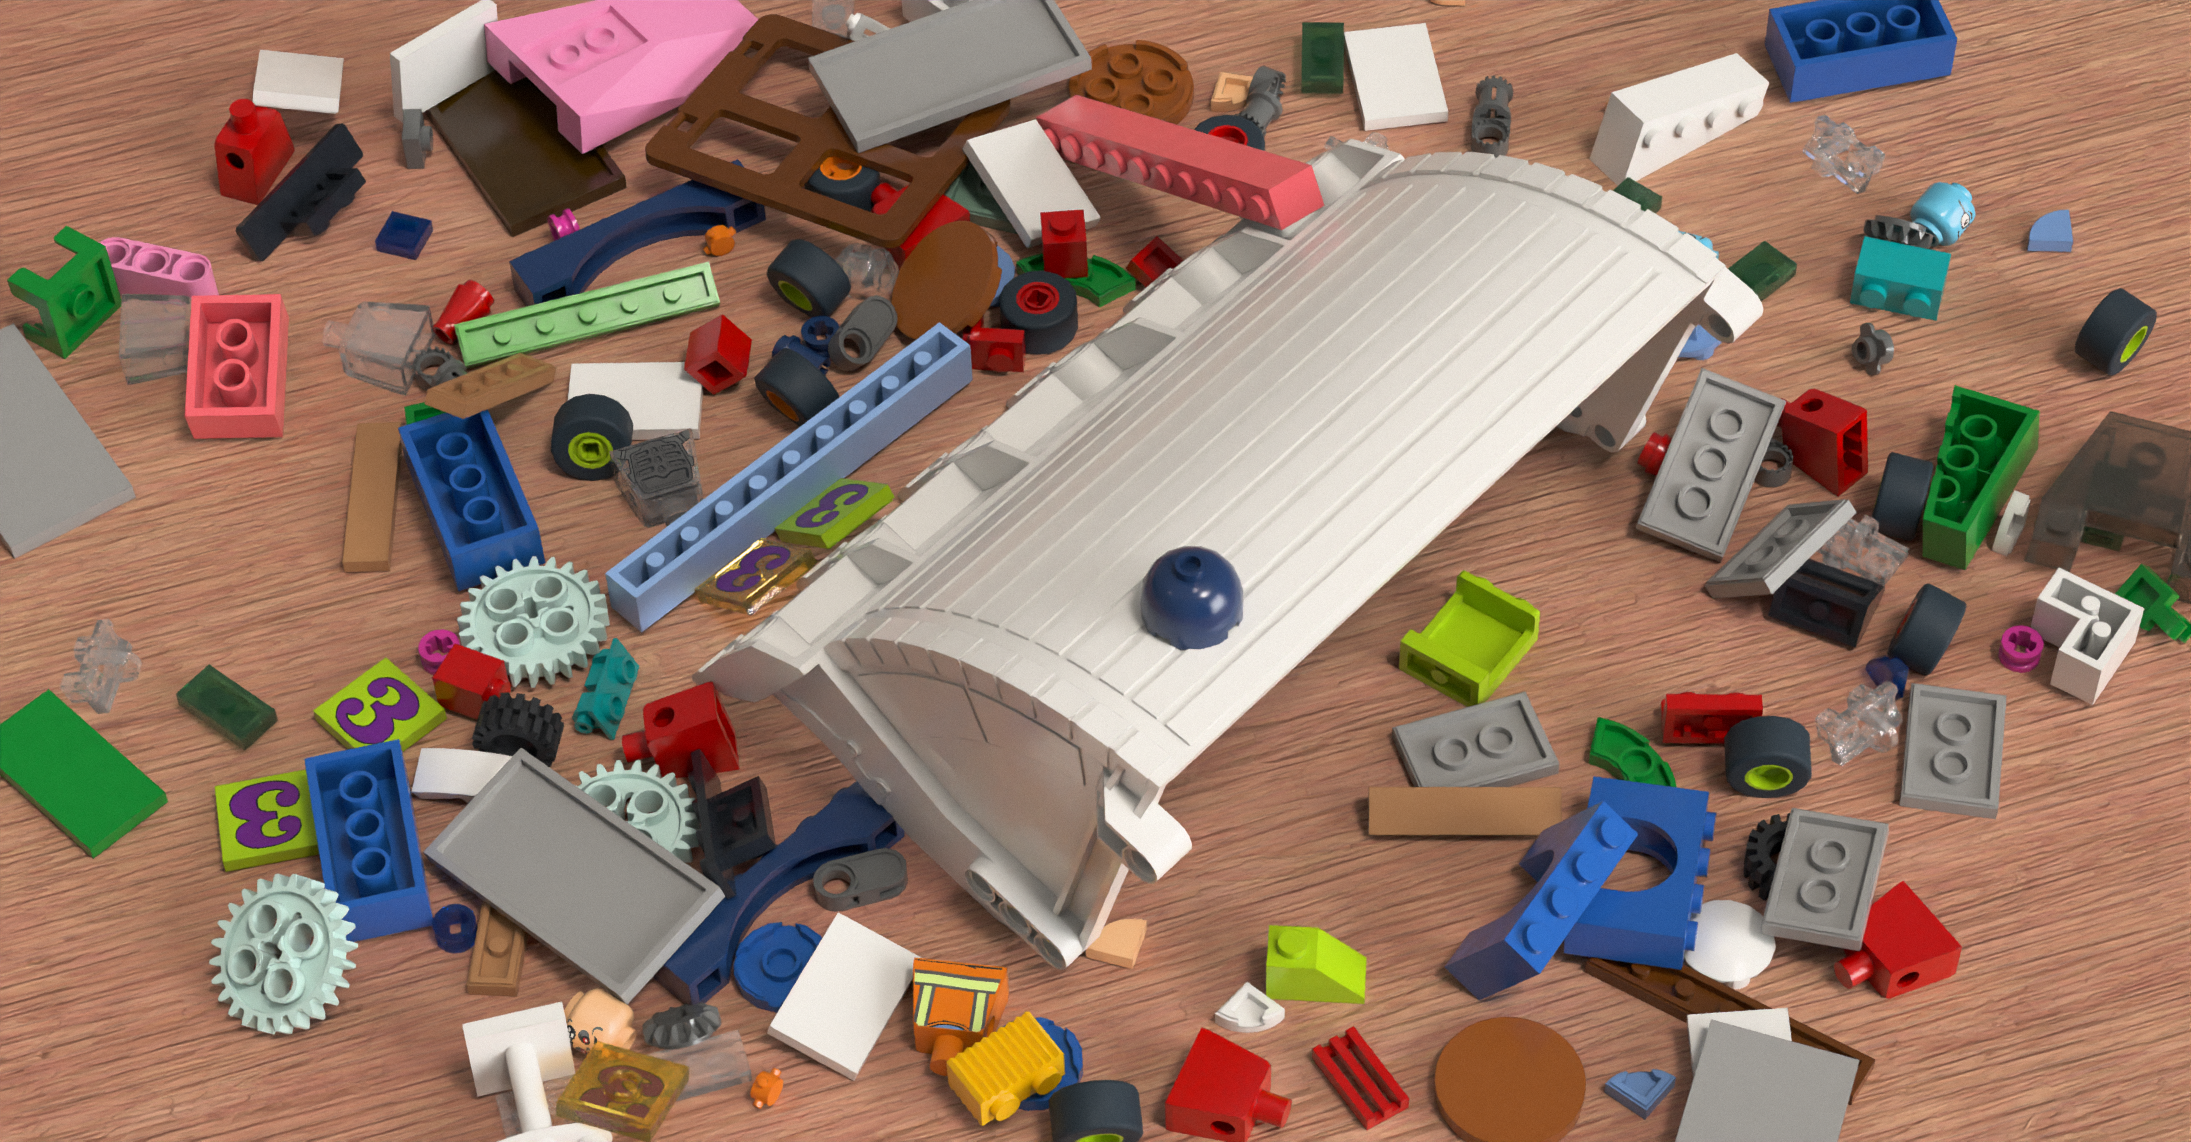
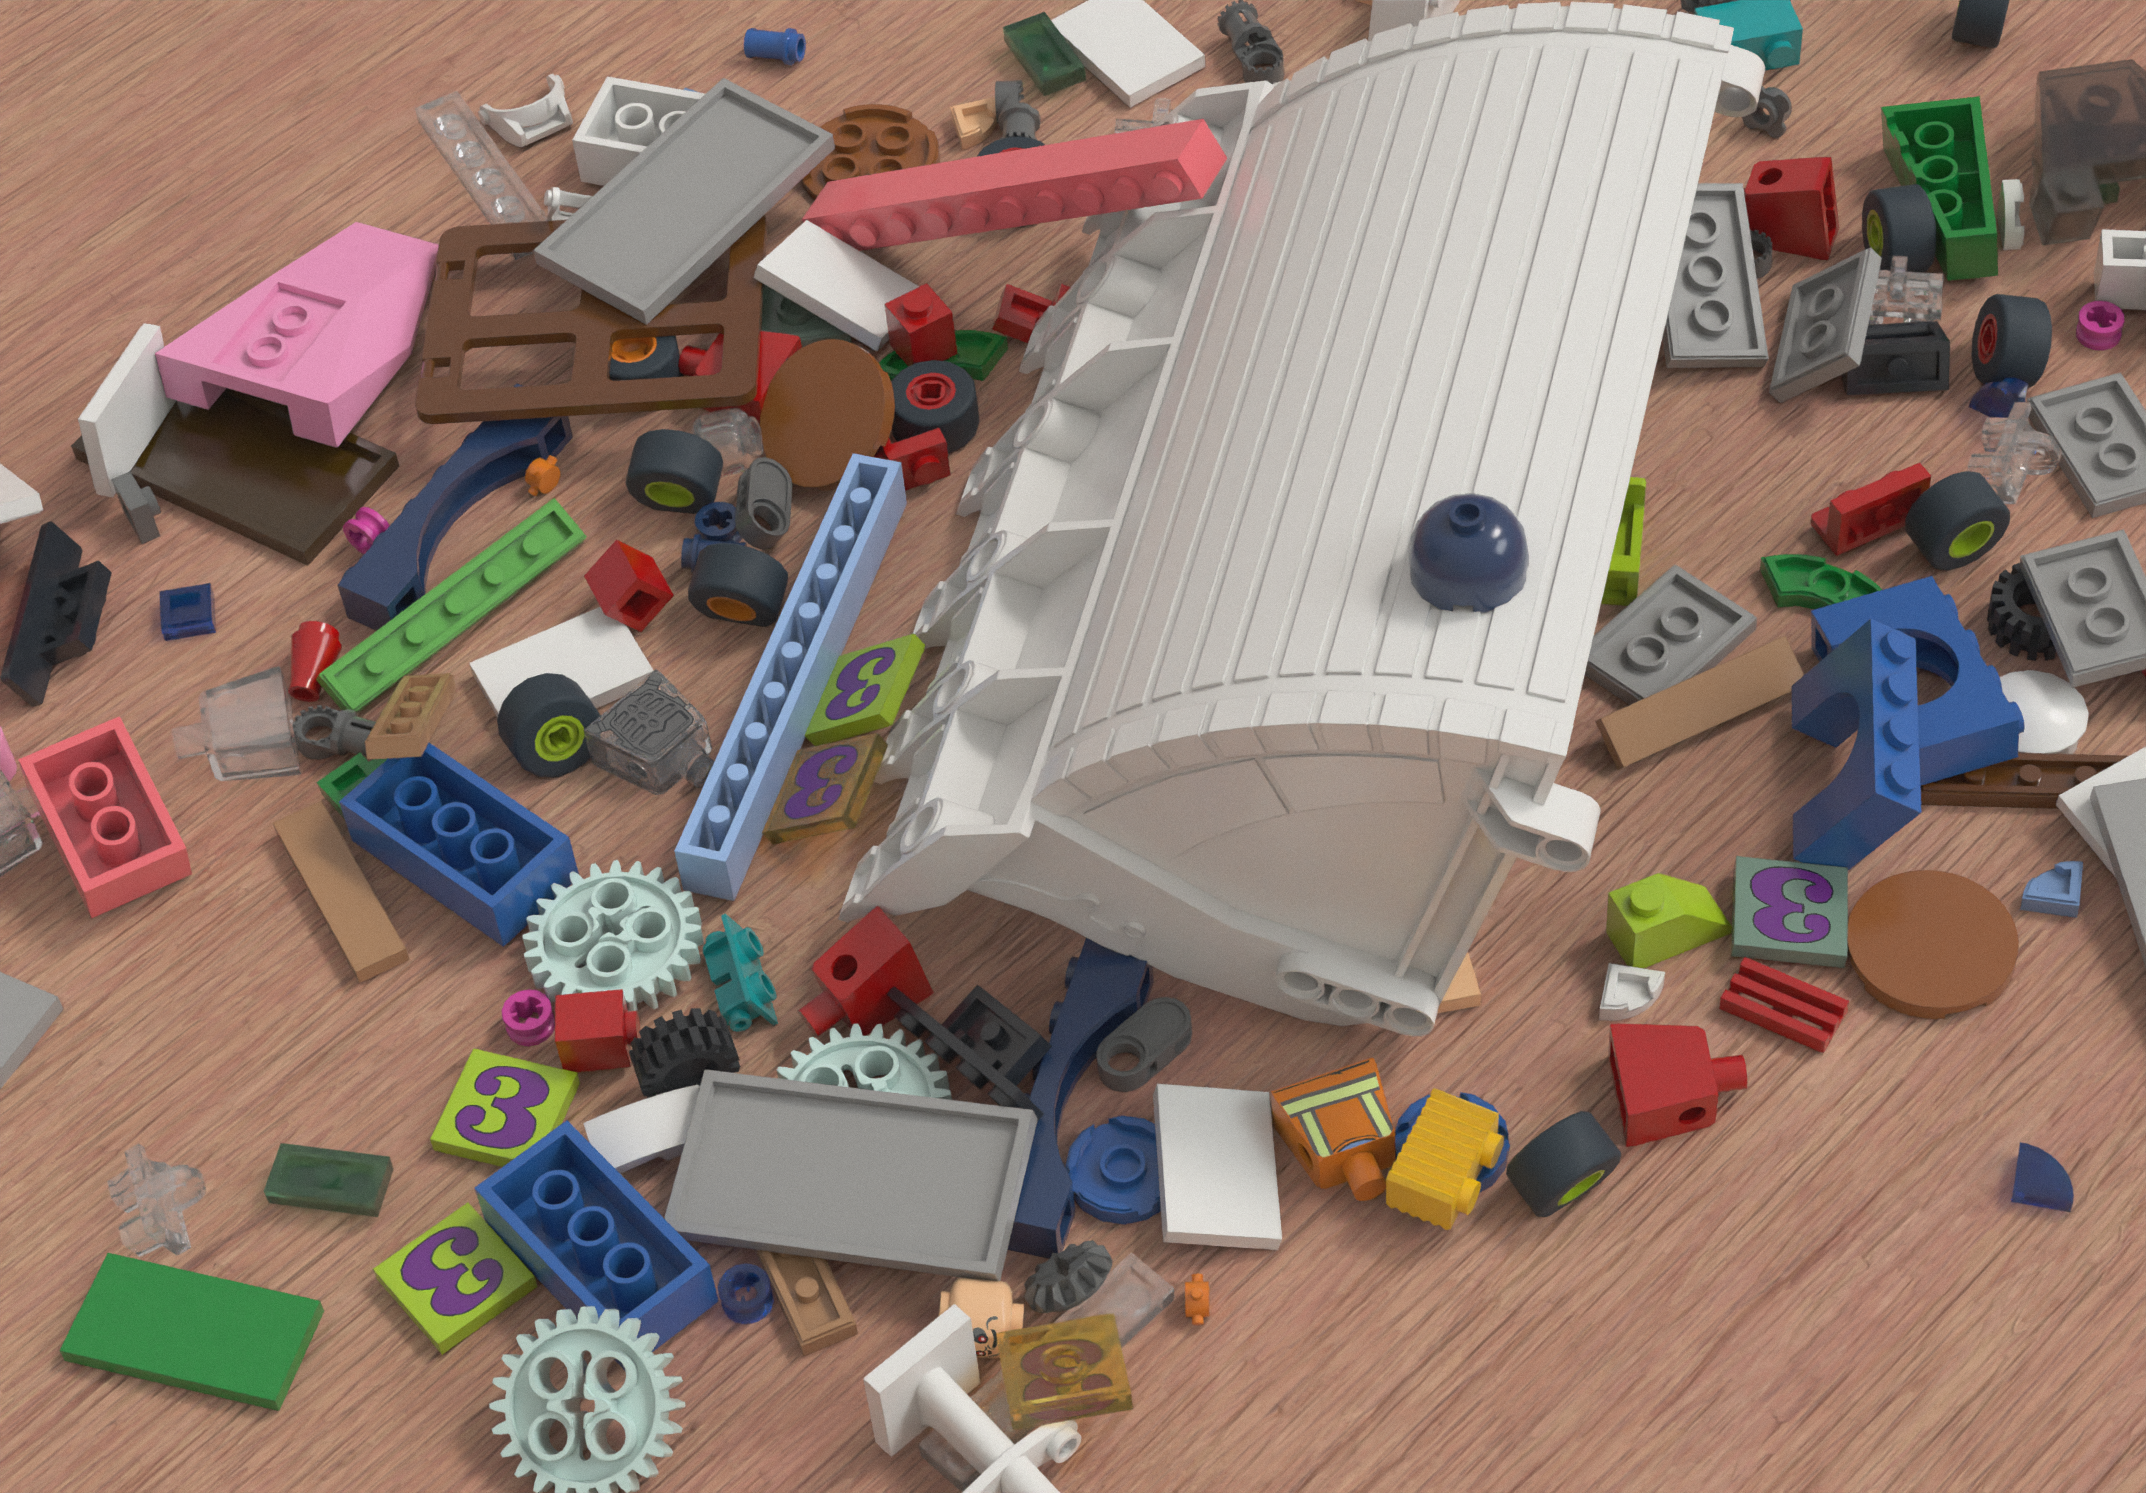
camera: 25 degrees left, 0 degrees up
(1415, 1007) = (1790, 912): none -> sand green tile

